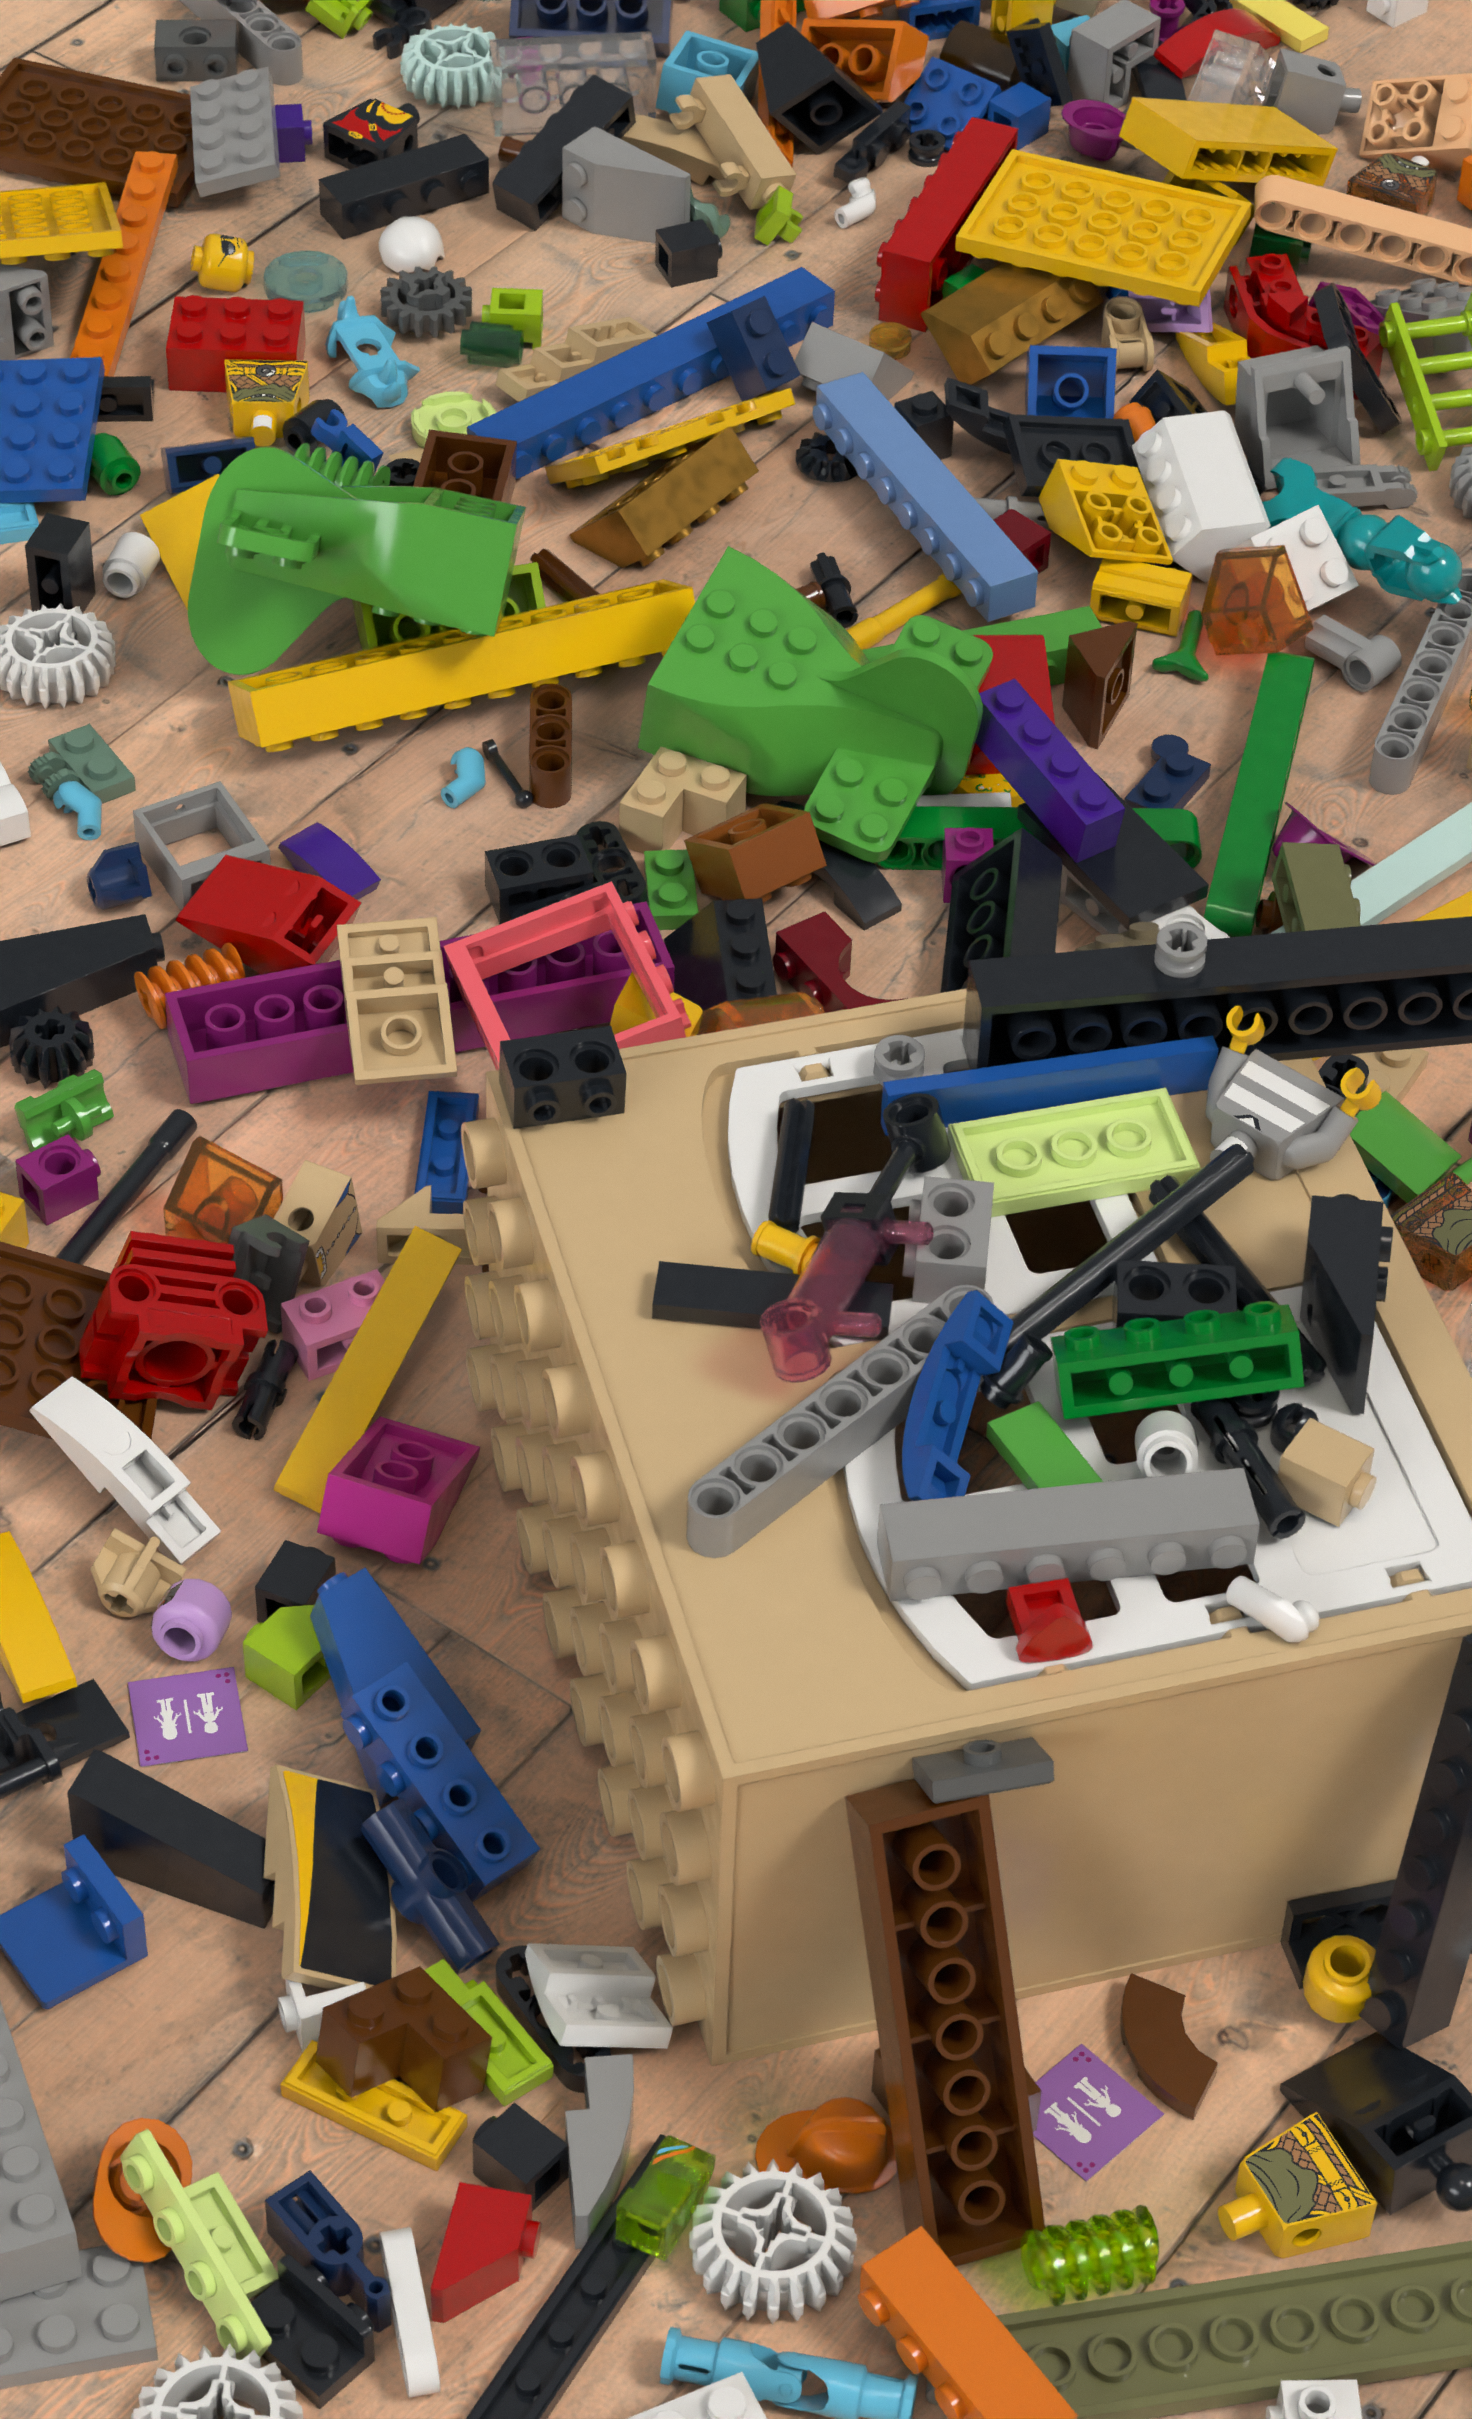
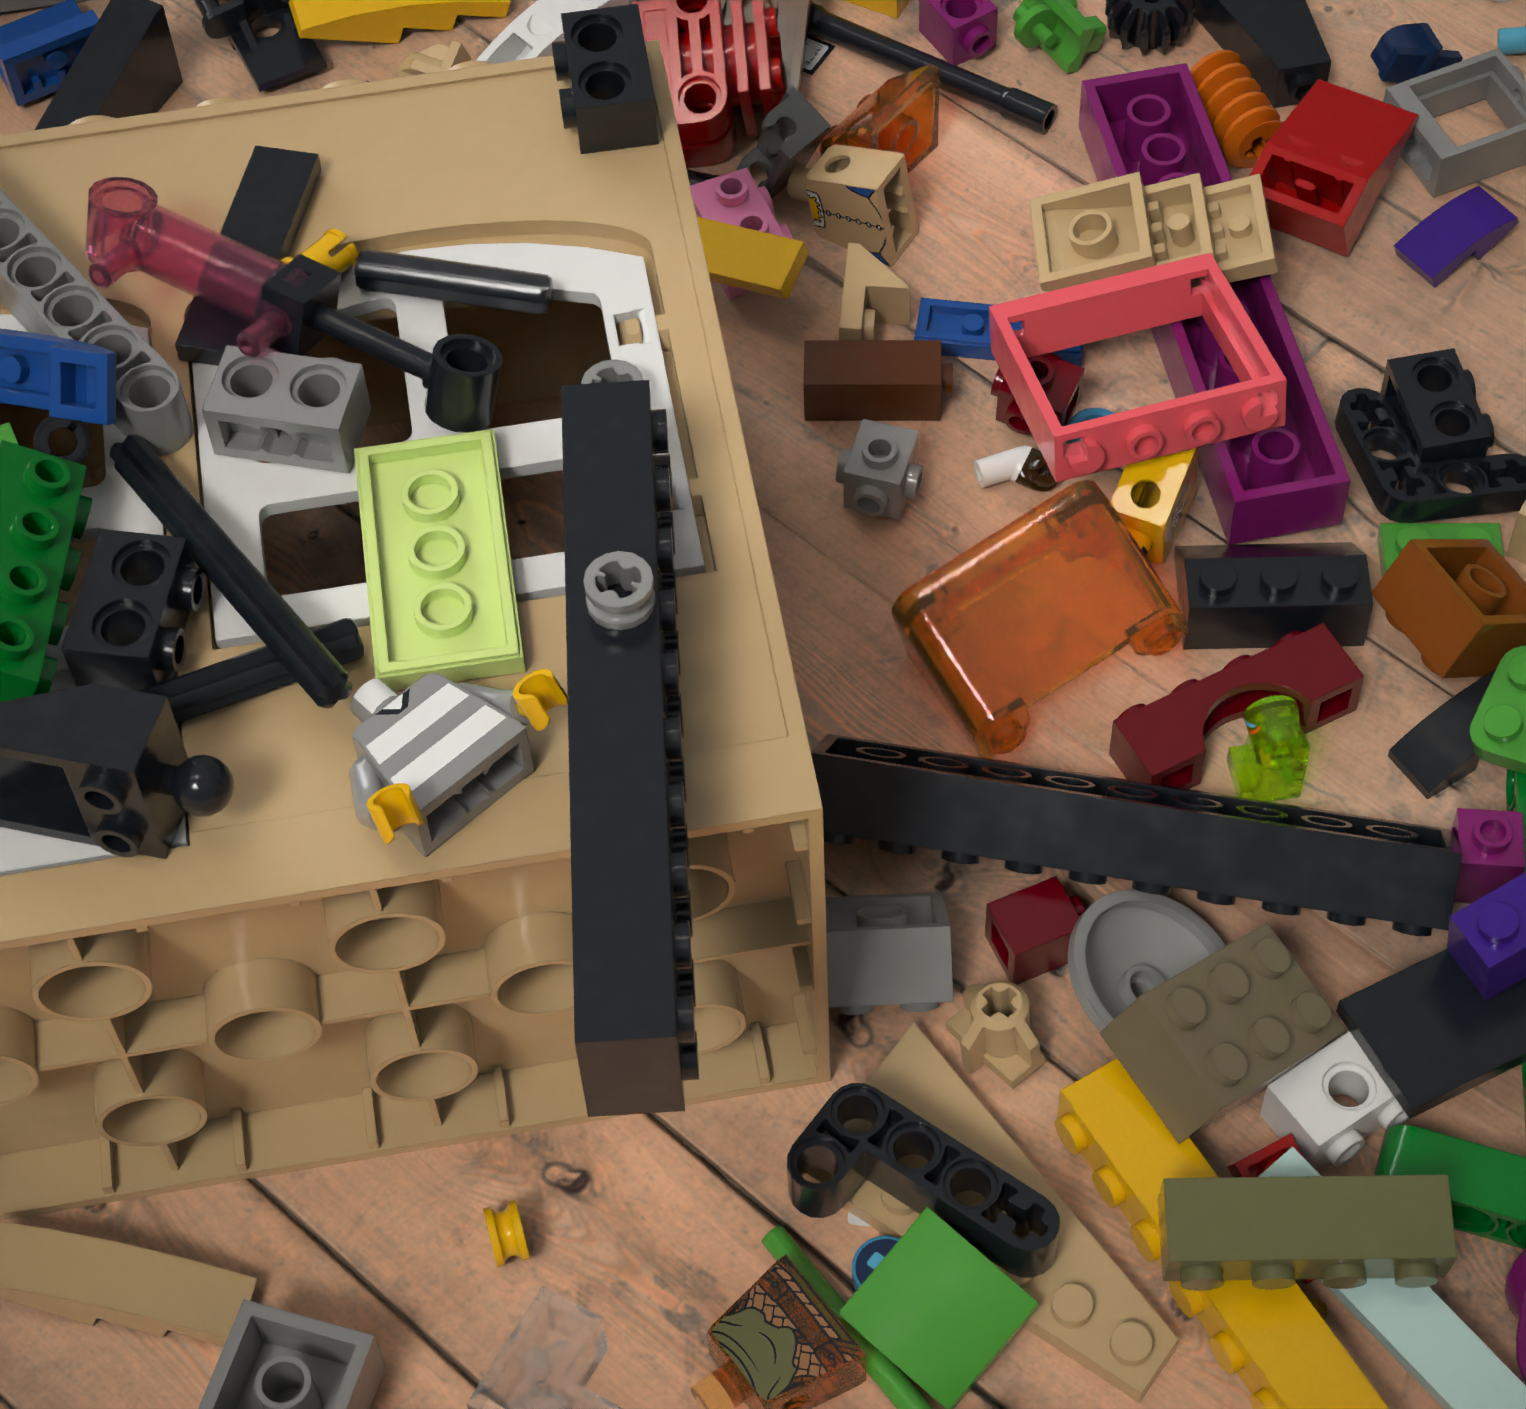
camera: 100 degrees right, 10 degrees up
(895, 962) = (1274, 754): none -> clear neon green leg
(1064, 1080) = (534, 518): blue tile -> none

